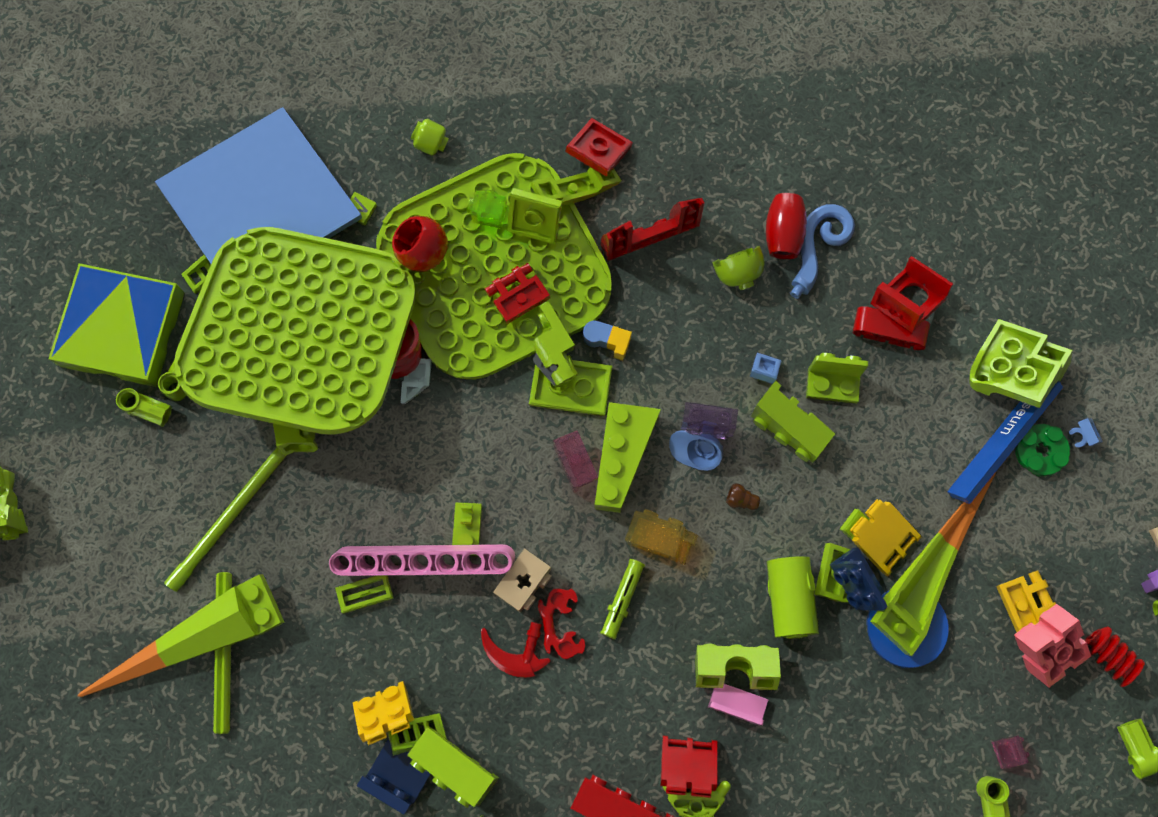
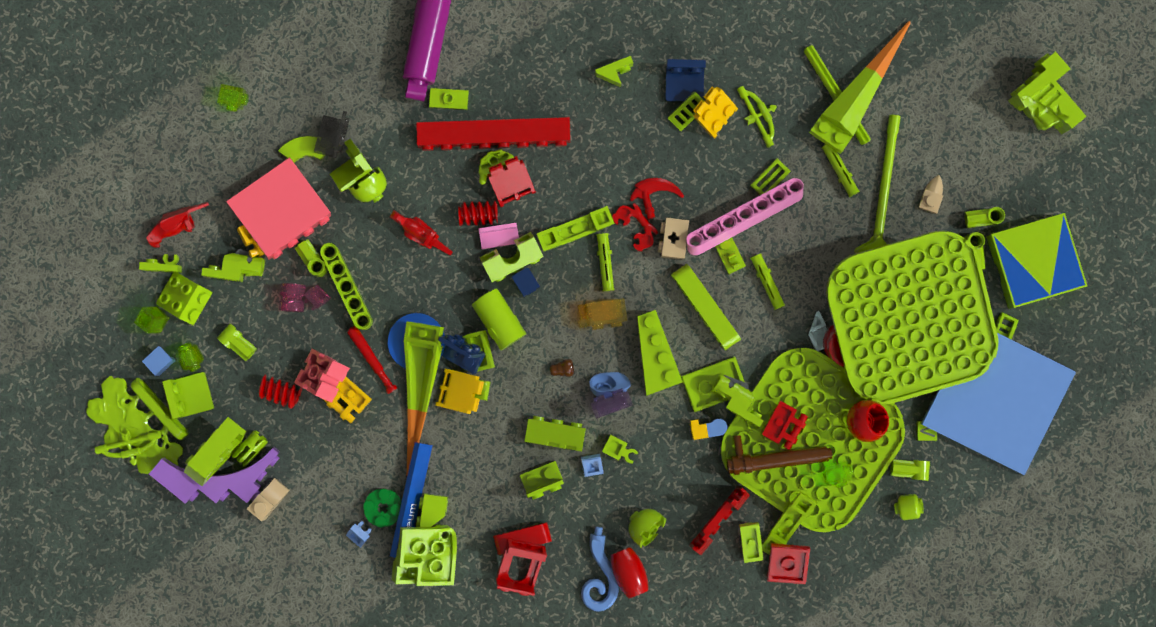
camera: 145 degrees right, 10 degrees up
(187, 466) = (932, 195): none -> tan plate
(275, 544) = (841, 171): none -> lime pin
(322, 681) = (754, 117): none -> lime piece
(400, 174) = (914, 469): none -> lime piece
(440, 470) = (767, 281): none -> lime pin
(452, 768) = (654, 101): lime wedge -> none
(530, 480) = (706, 306): none -> lime beam
(534, 215) = (802, 482): lime tile -> none
(575, 460) = (683, 333): clear pink panel -> none
(582, 271) = (748, 463): none -> reddish brown cylinder
(627, 190) = (751, 542): none -> lime plate
(638, 660) = (575, 229): none -> lime slope
(726, 372) = (616, 448): none -> lime plate
(735, 625) = (525, 282): none -> dark blue panel
(751, 747) = (478, 213): none -> red piece
(838, 765) = (419, 232): none -> red animal
(973, 757) = (339, 279): none -> lime beam
(975, 640) = (370, 357): none -> red piece
(983, 414) = (433, 509): none -> lime slope
(1044, 767) = (292, 297): none -> clear pink wheel

